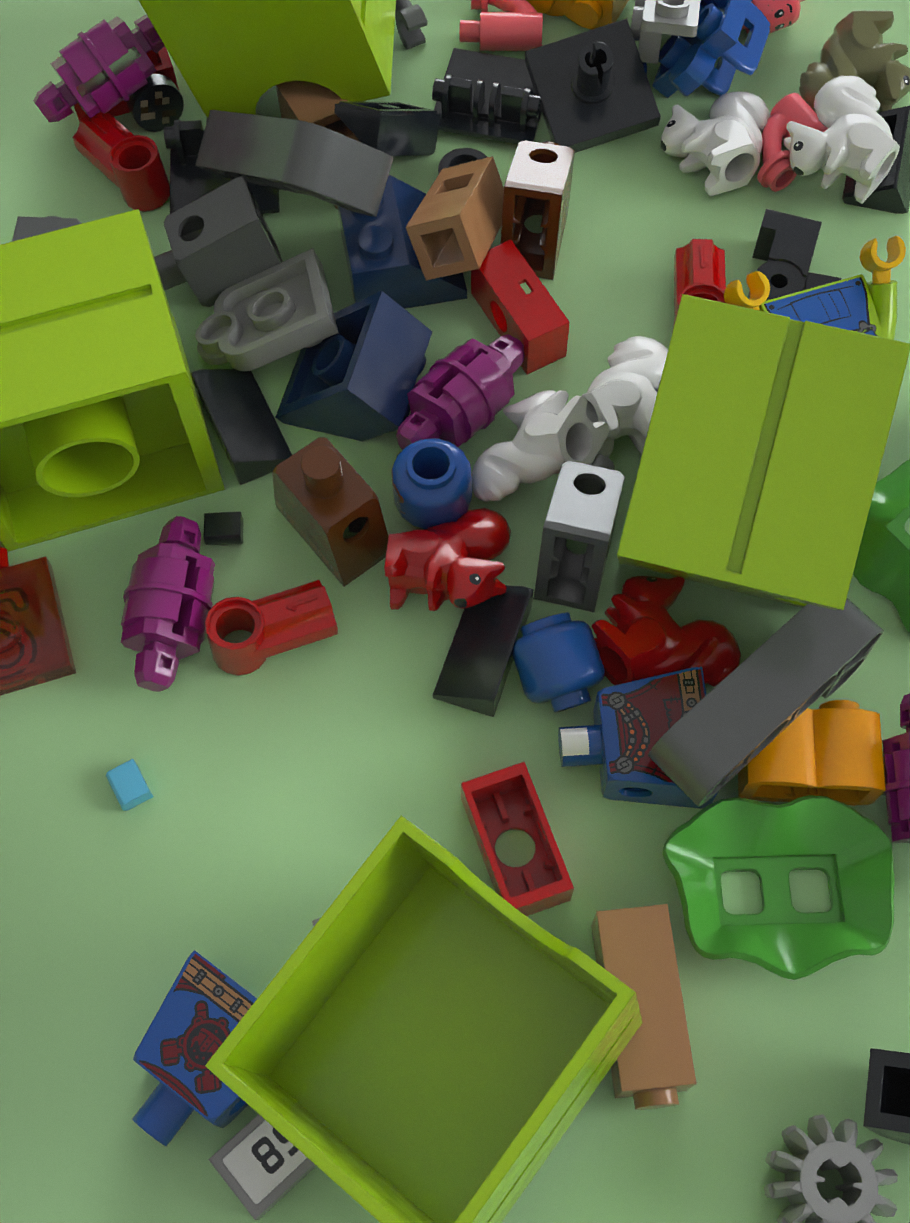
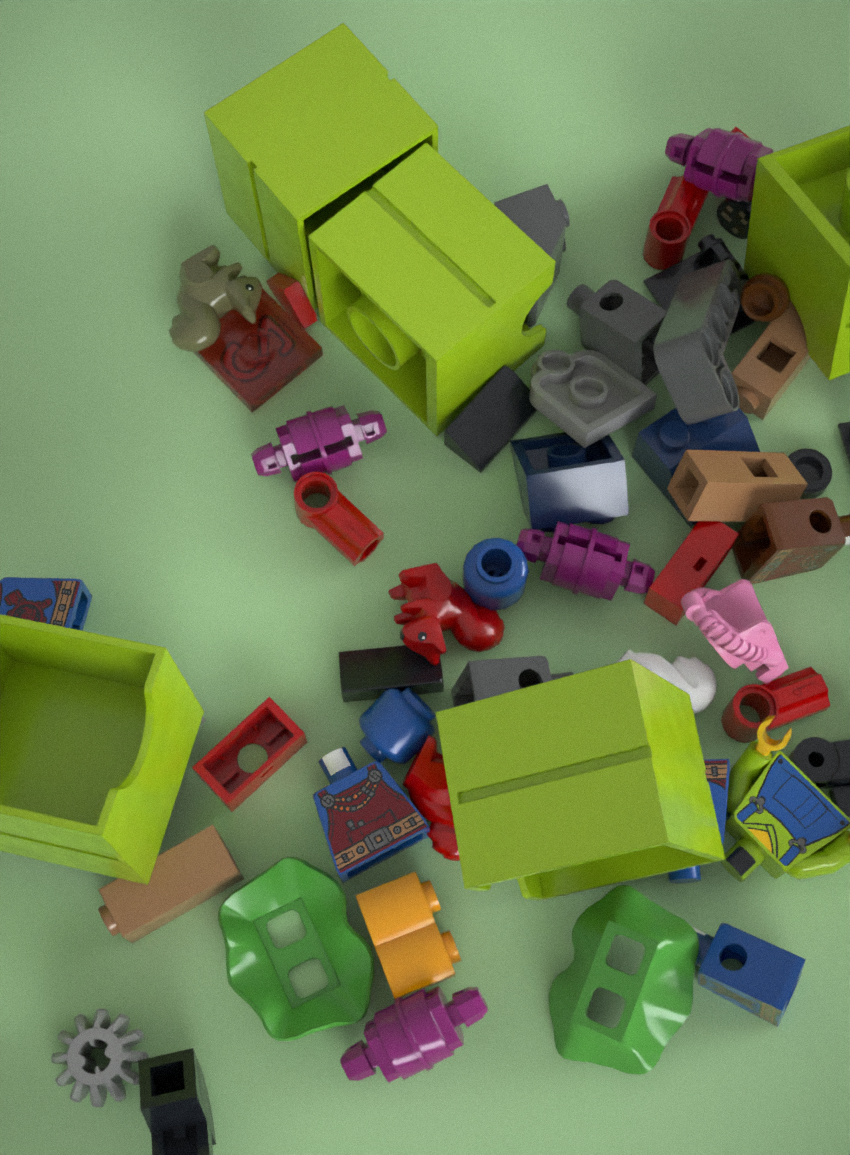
camera: 65 degrees right, 5 degrees up
(128, 785) = (187, 487): medium azure piece -> none
(223, 528) = (401, 451): black piece -> none
(270, 96) = (765, 297): none -> reddish brown plate
(321, 498) = (440, 508): reddish brown torso -> none
(391, 126) = (805, 395): black slope -> none
(546, 438) = (565, 640): white animal -> none
(616, 279) = (737, 628): none -> bright pink piece
(763, 697) = (418, 878): dark grey beam -> none

